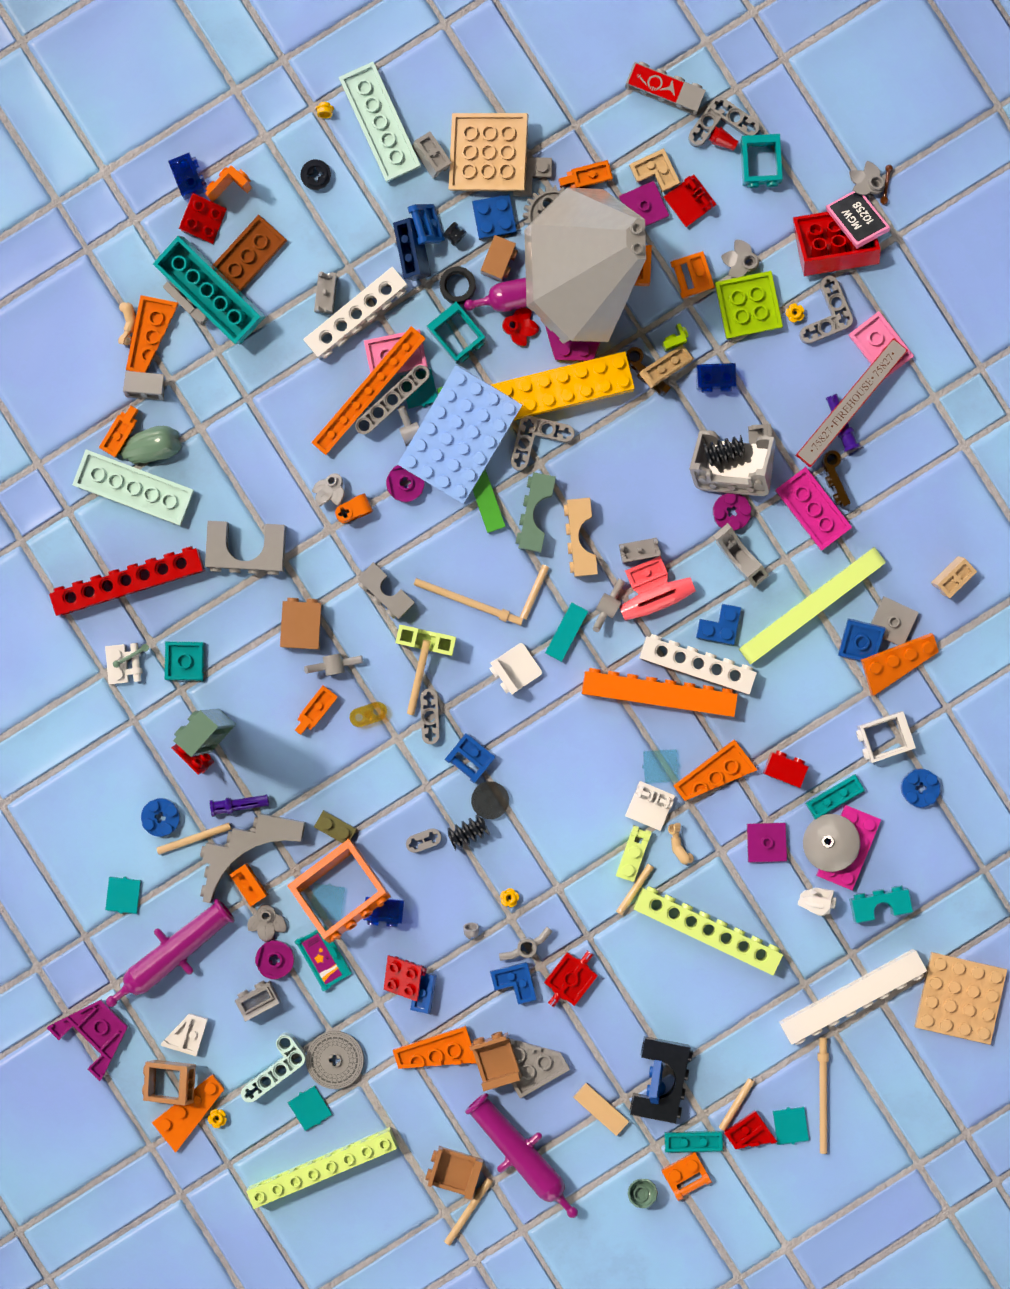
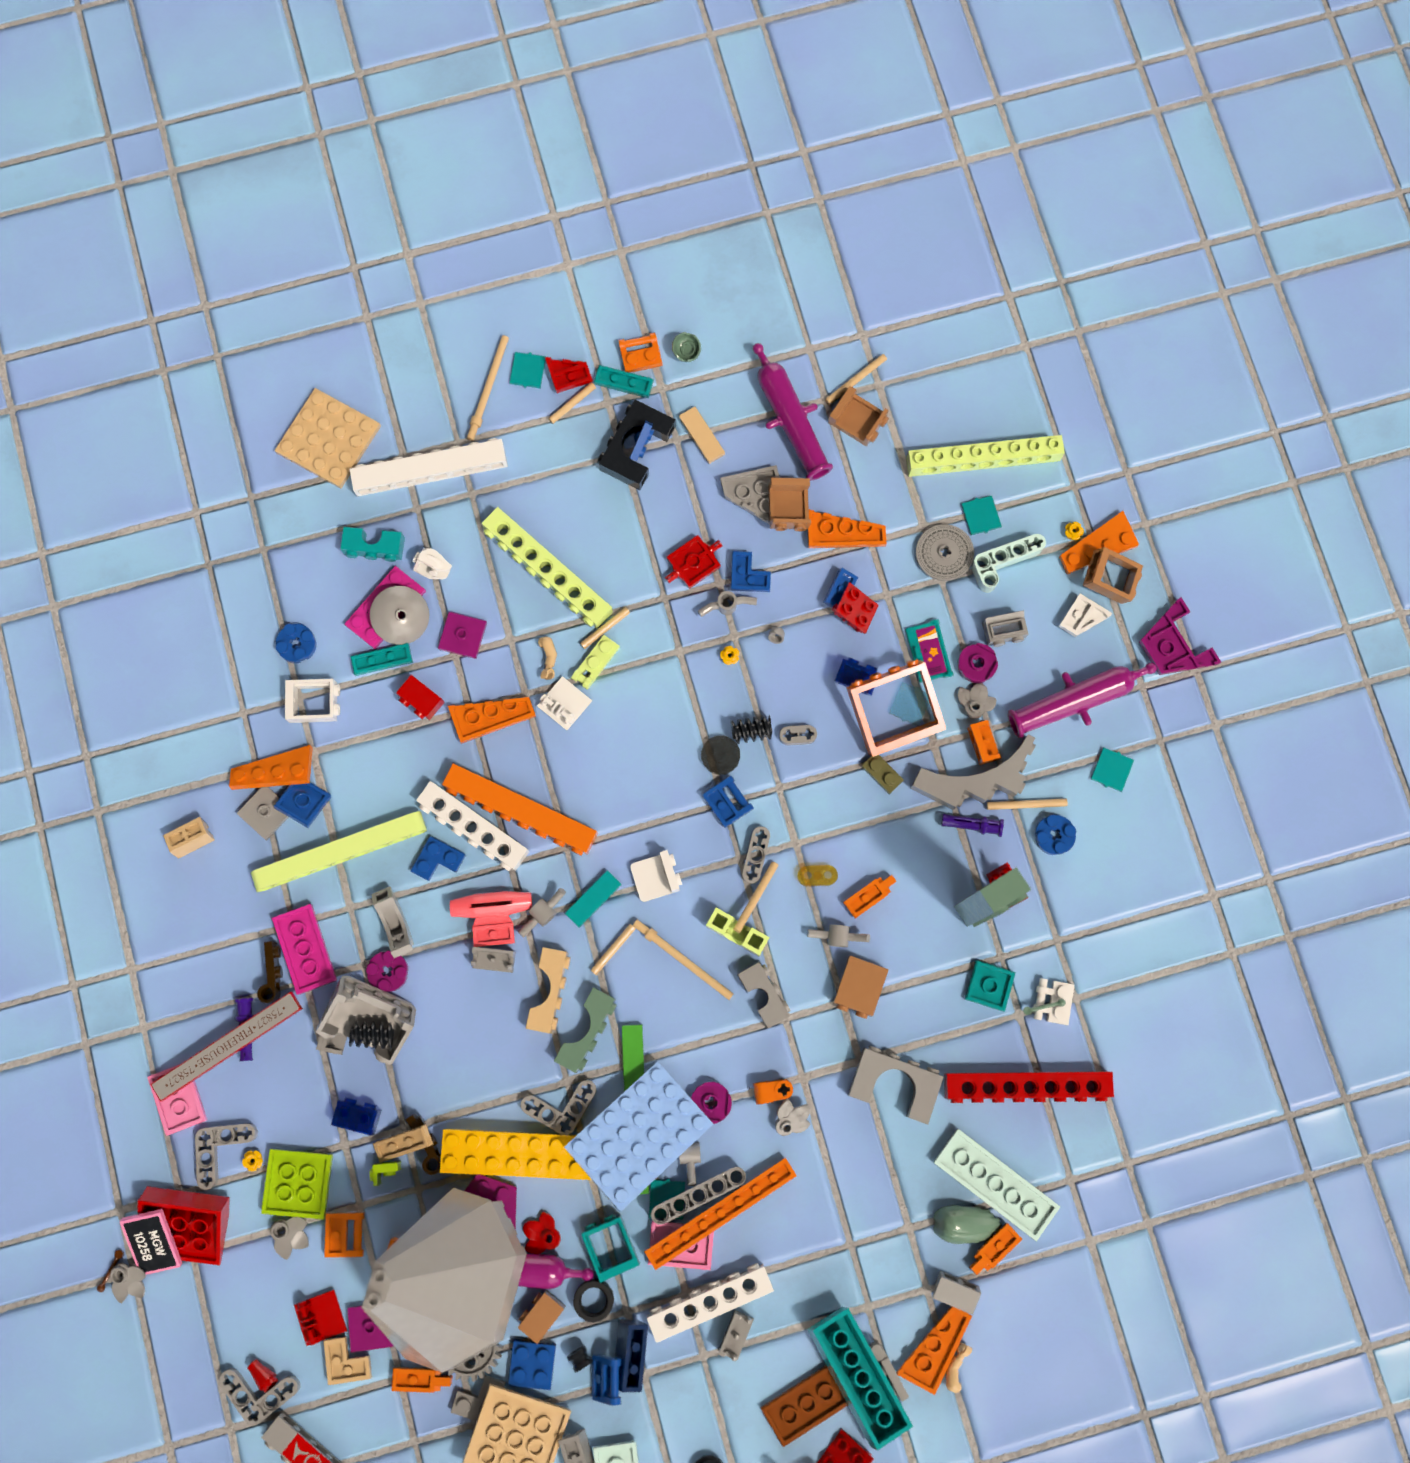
camera: 165 degrees left, 10 degrees down
(660, 766) = (542, 739): clear light blue piece -> none
(760, 141) = (225, 1361): teal window -> none

